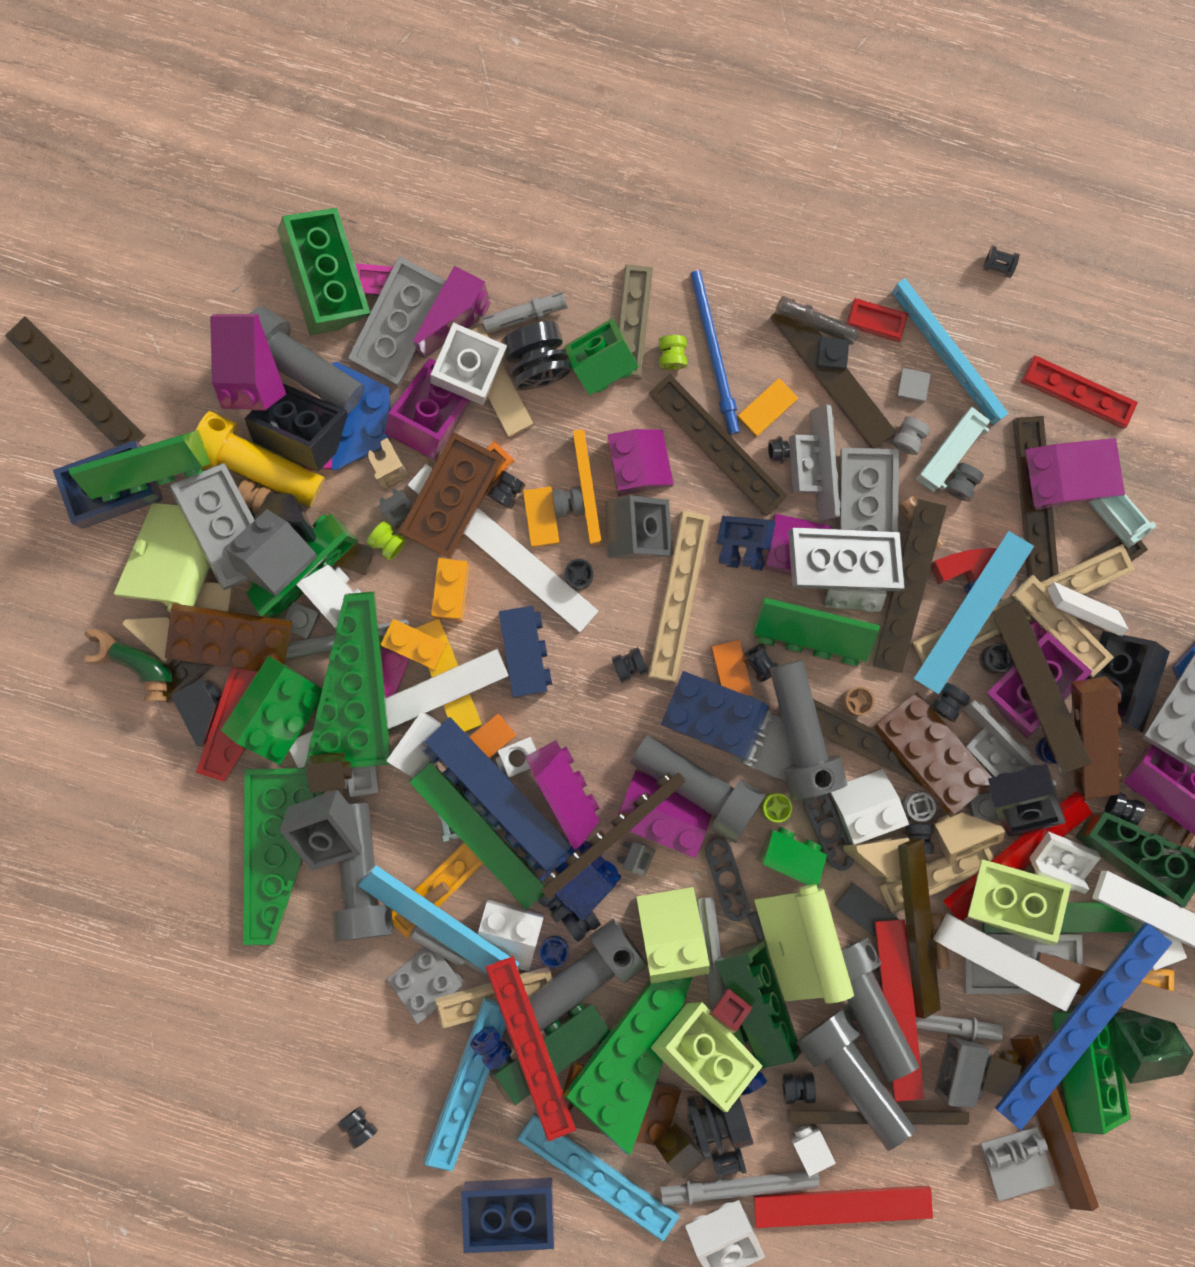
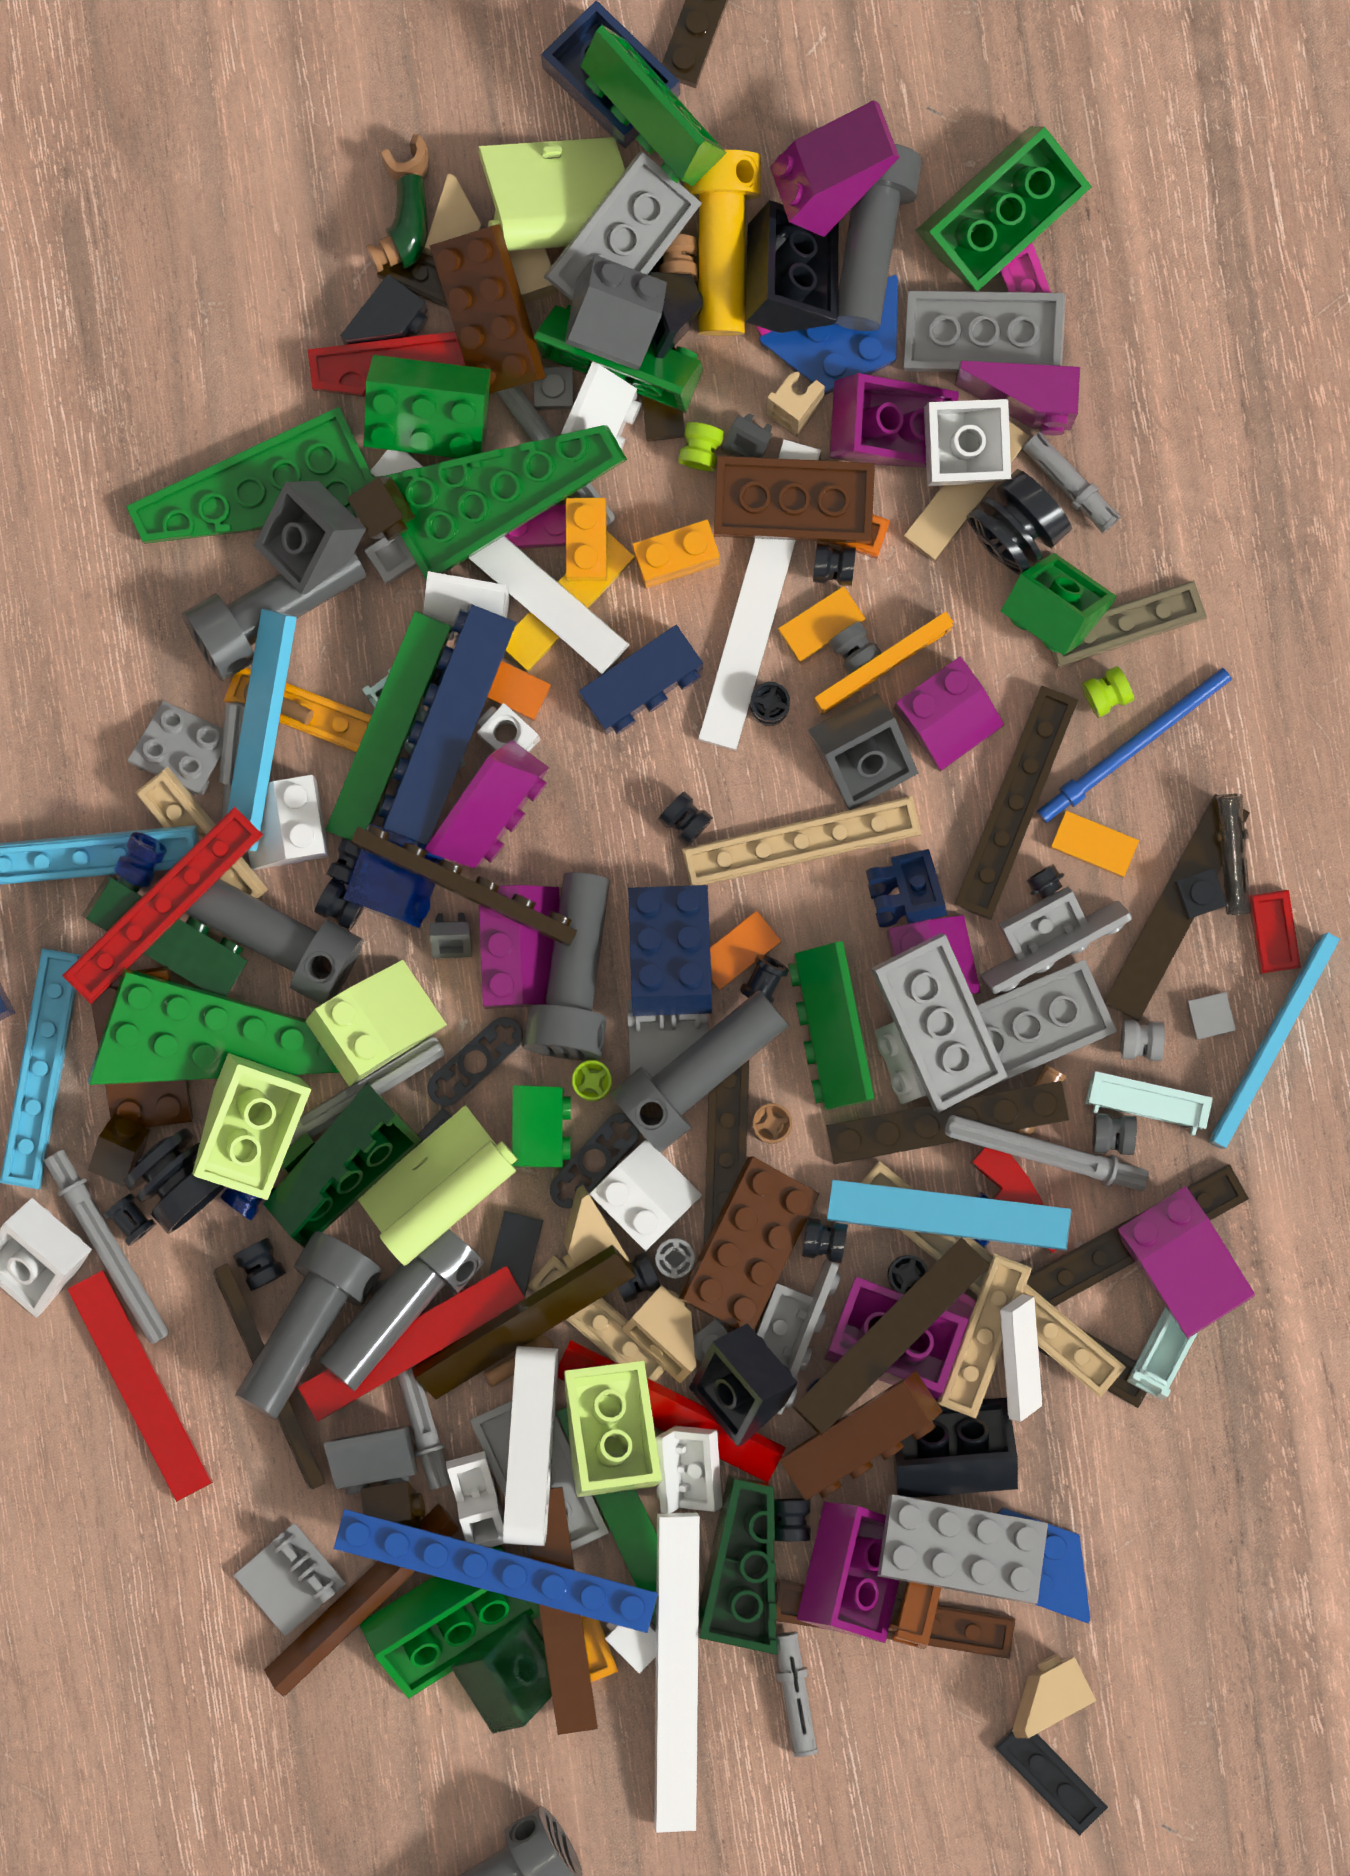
camera: 70 degrees right, 0 degrees up
(551, 954) = (284, 882): clear blue wheel -> none
(730, 1011) = (316, 1127): dark red plate -> none
(812, 1149) = (193, 1313): white brick -> none
(985, 497) = (1095, 1166): none -> light grey axle
(1025, 1013) = (477, 1499): none -> white brick
(1079, 392) = (1303, 1232): red tile -> none

